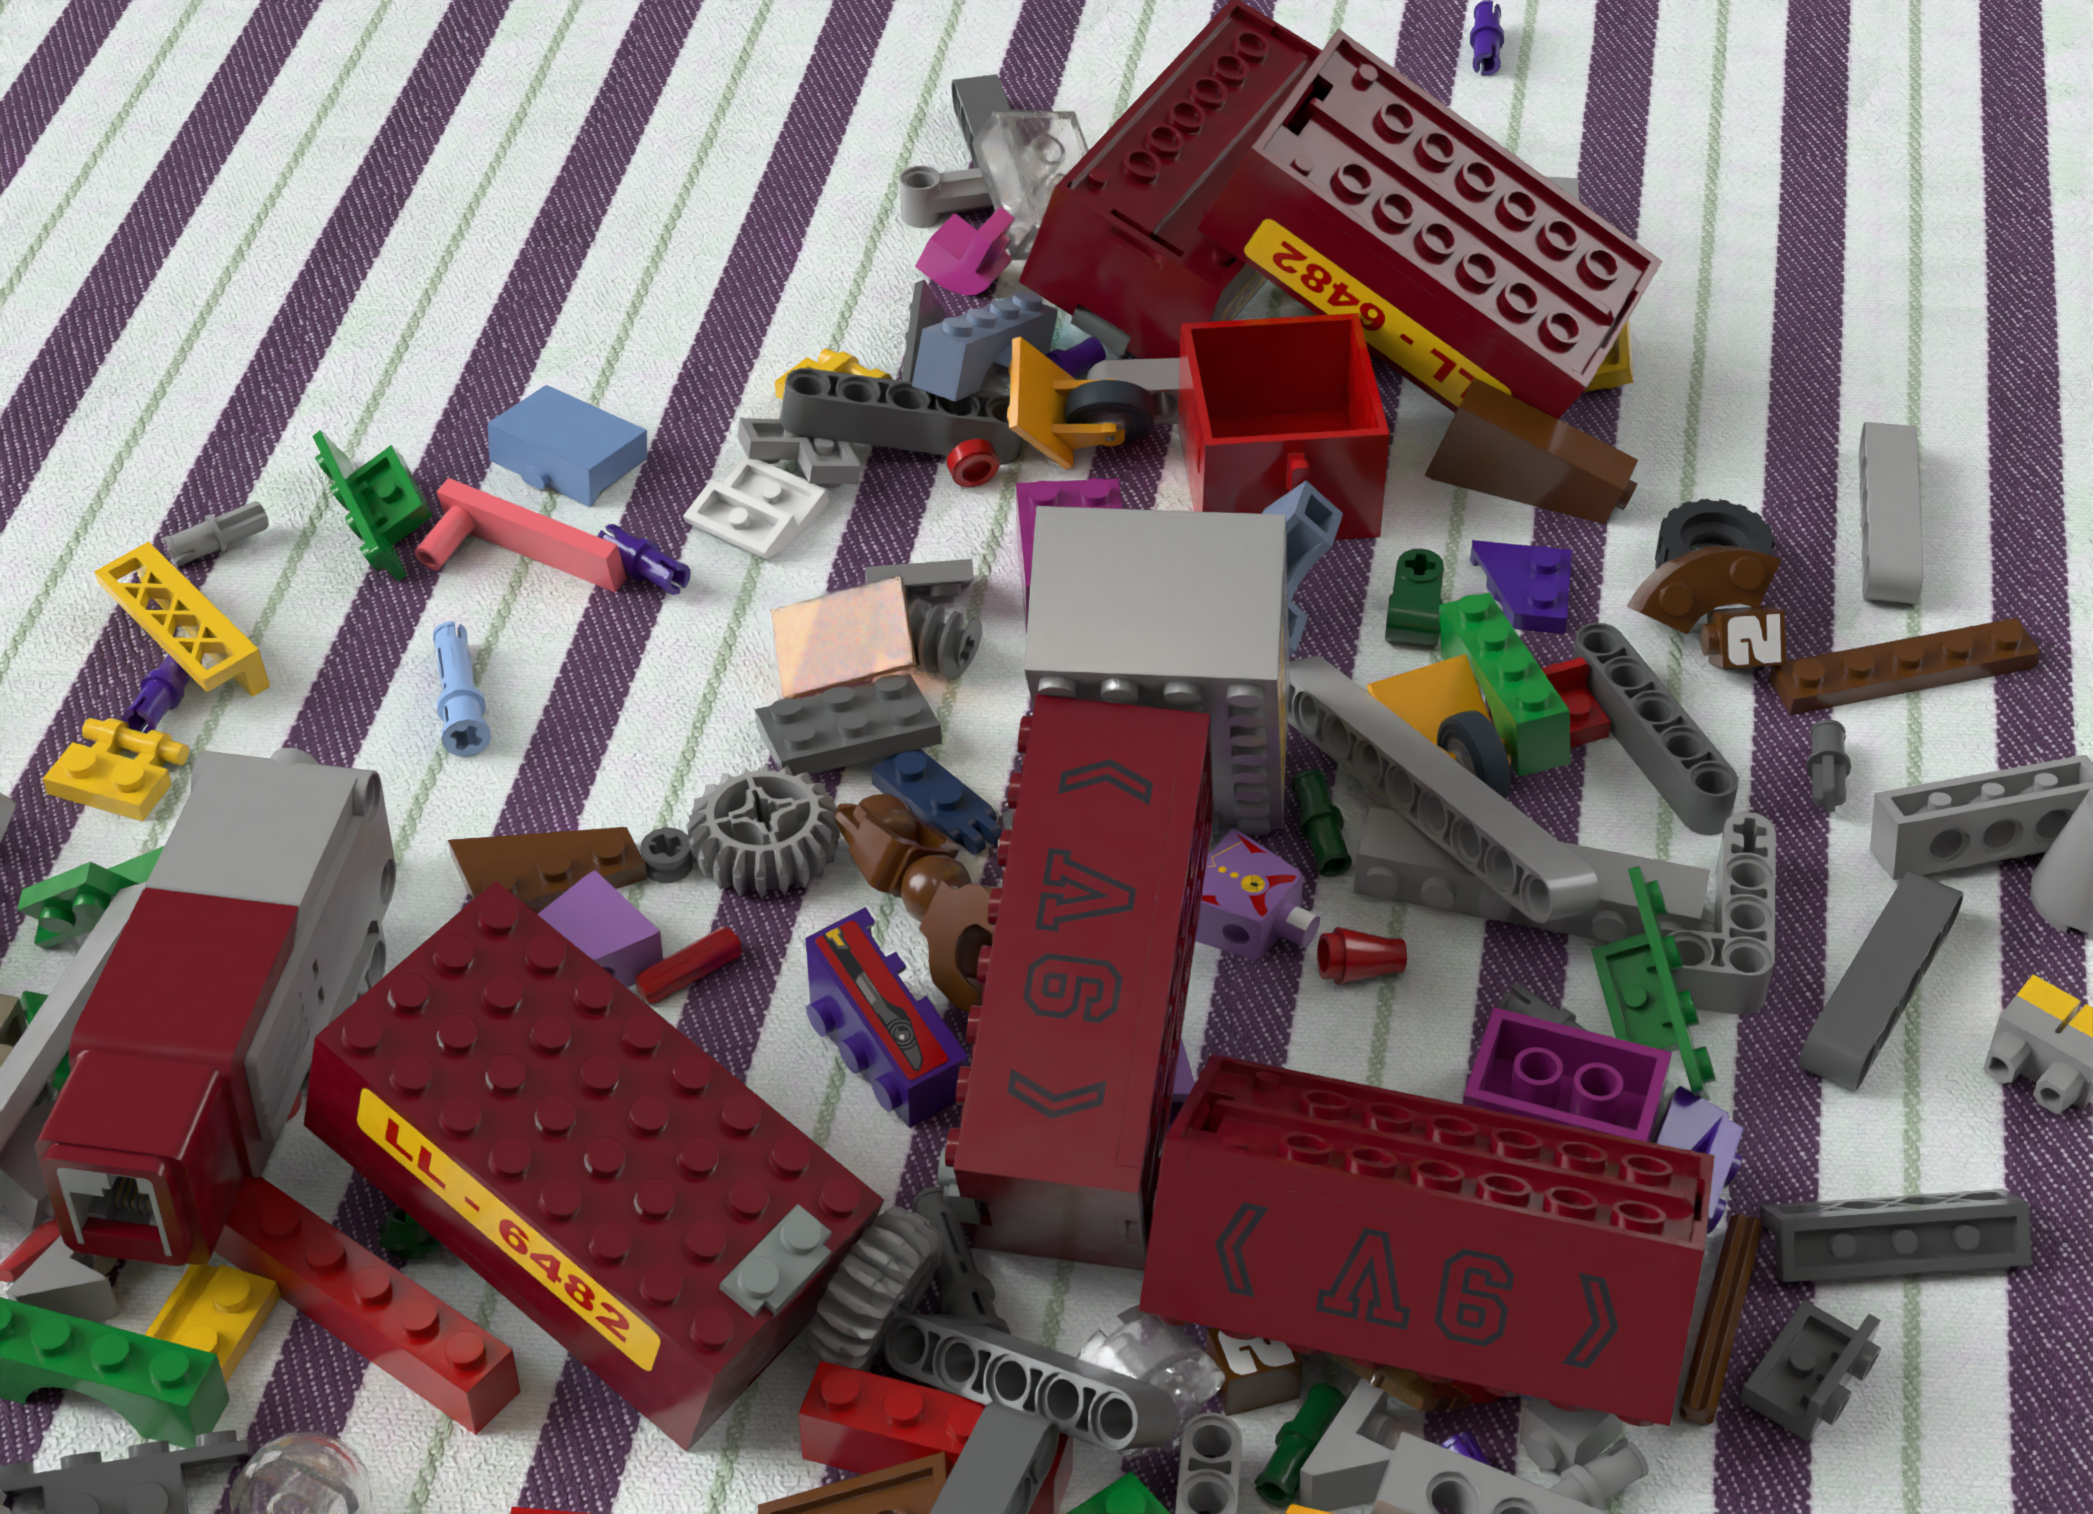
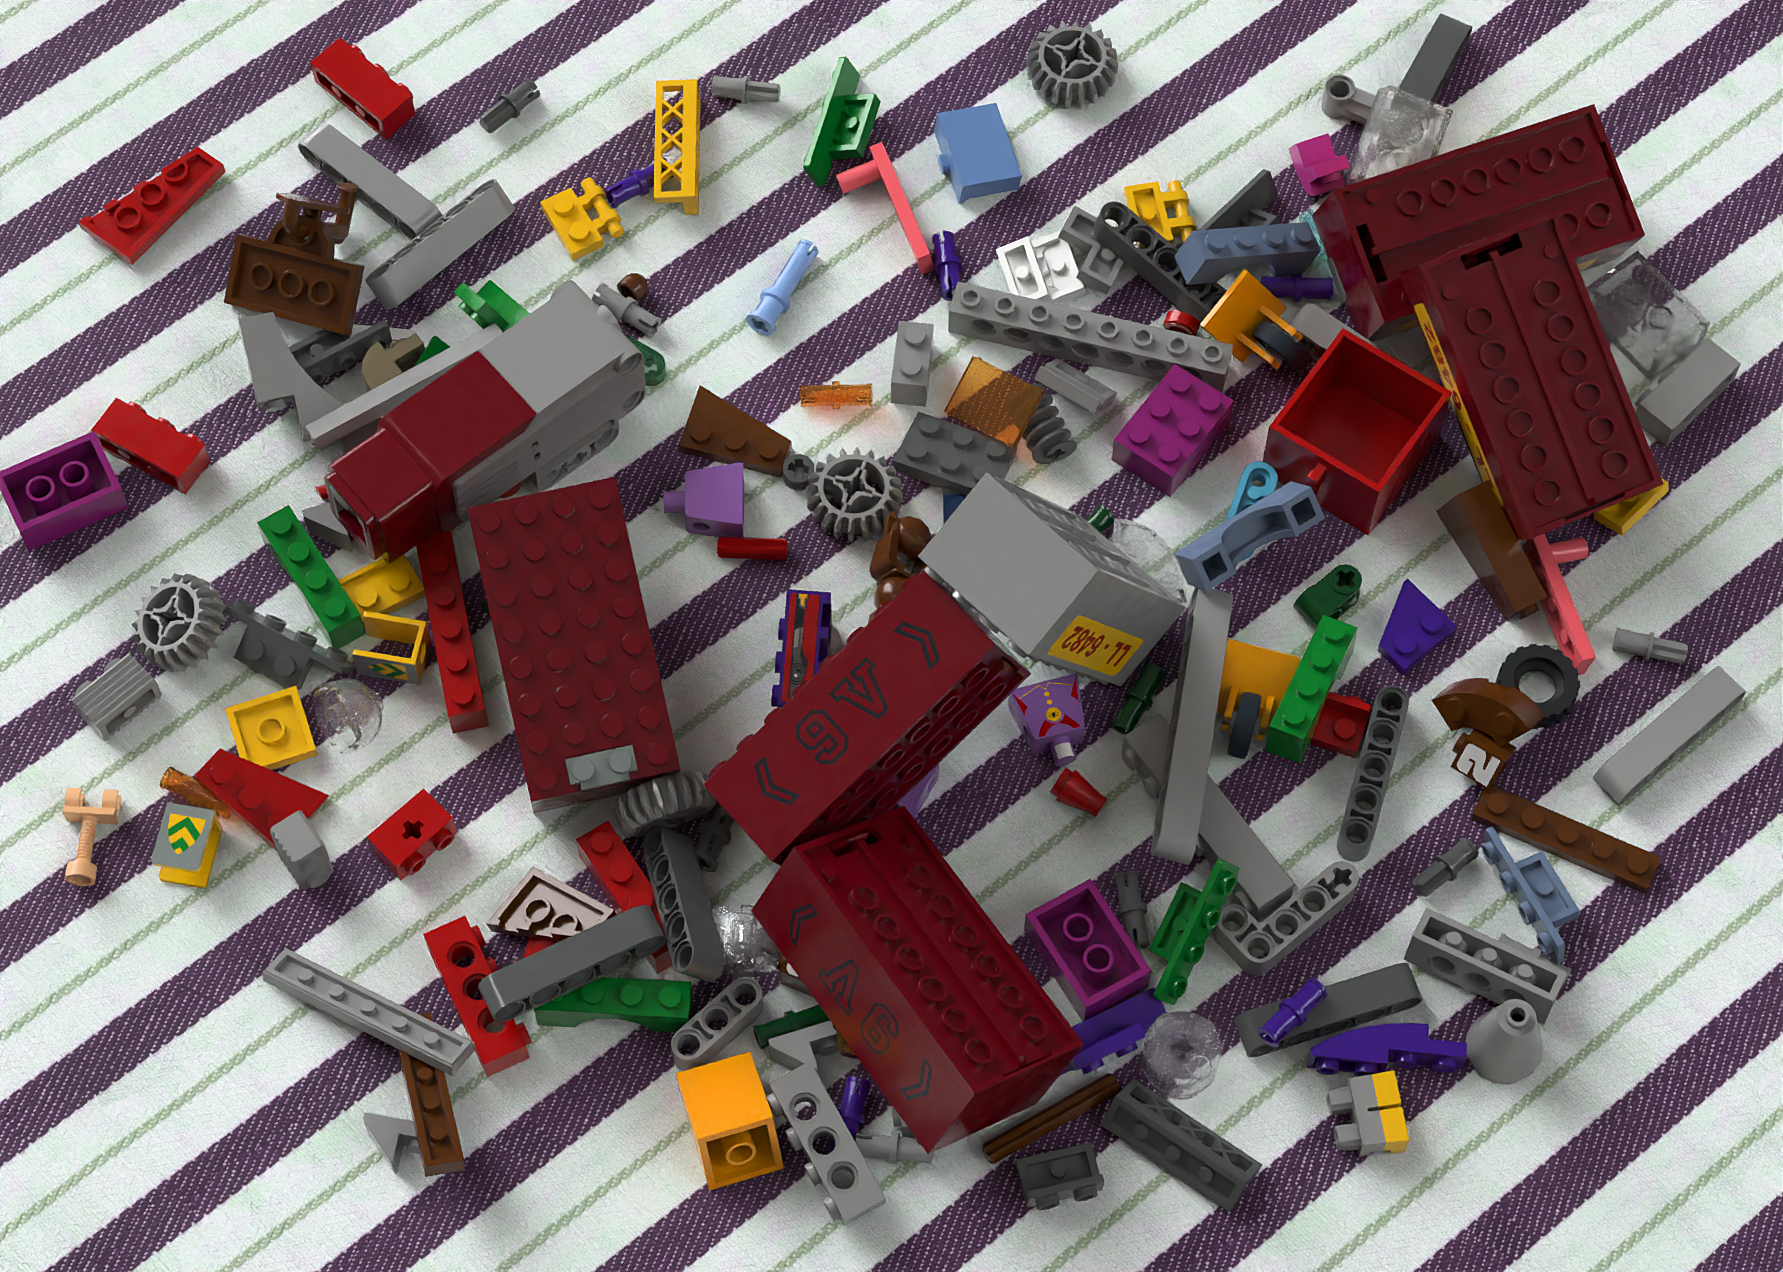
camera: 40 degrees right, 20 degrees up
(287, 1349) = (389, 666): none -> yellow piece
(596, 314) = (1066, 54): none -> light grey gear
(635, 751) = (836, 395): none -> clear orange pin
(701, 664) = (912, 363): none -> light grey brick
(867, 529) = (1084, 336): none -> light grey brick
(1660, 472) = (1559, 605): none -> coral piece
(1773, 455) = (1649, 646): none -> light grey axle
(1794, 1131) = (1186, 1034): none -> clear brick
(1868, 987) = (1292, 1012): none -> dark purple pin
(1945, 723) = (1538, 891): none -> sand blue bracket
(1986, 968) = (1372, 1047): none -> dark purple slope

